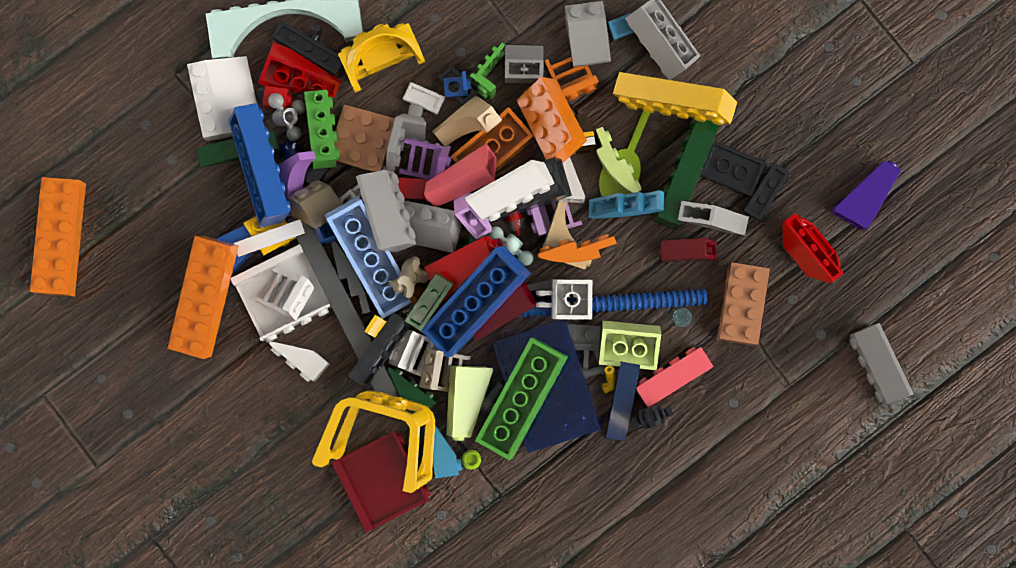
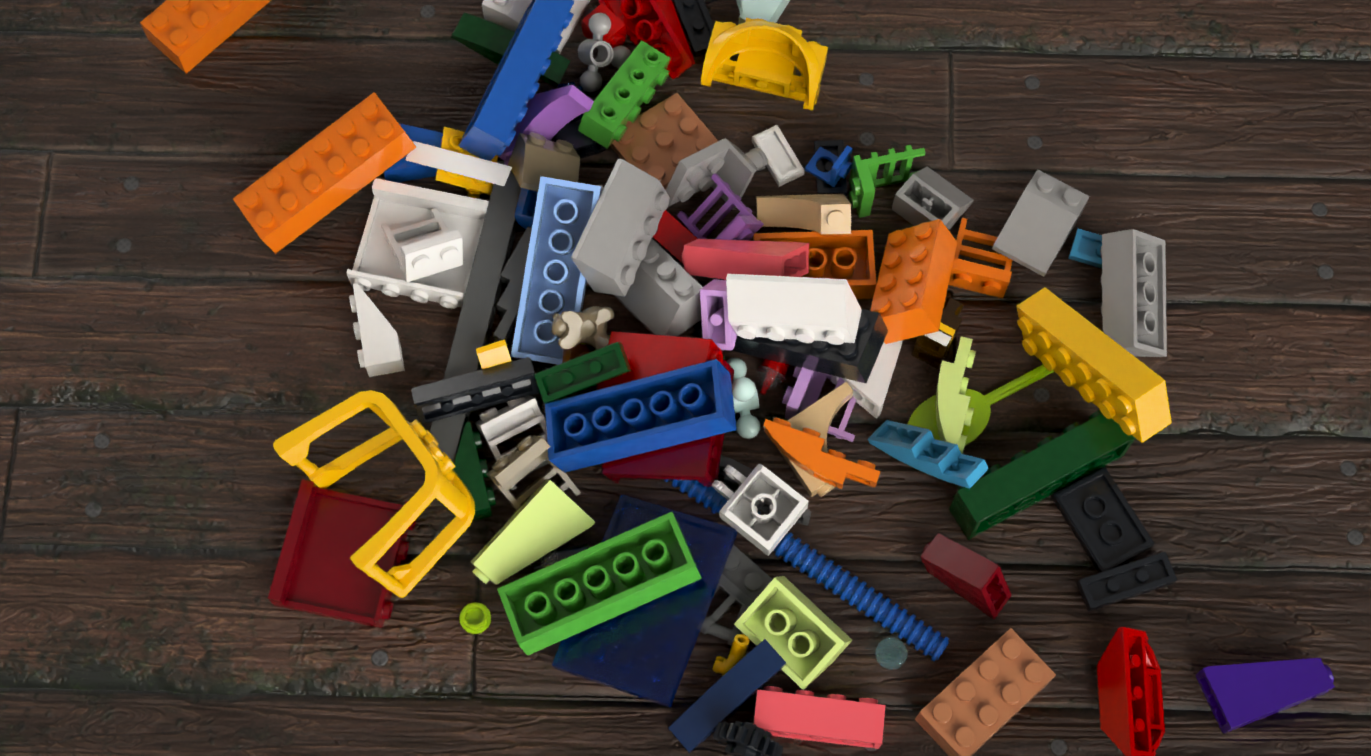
camera: 40 degrees right, 15 degrees down
(444, 458) = (442, 586): dark azure slope -> none
(713, 217) = (1030, 551): light grey slope -> none

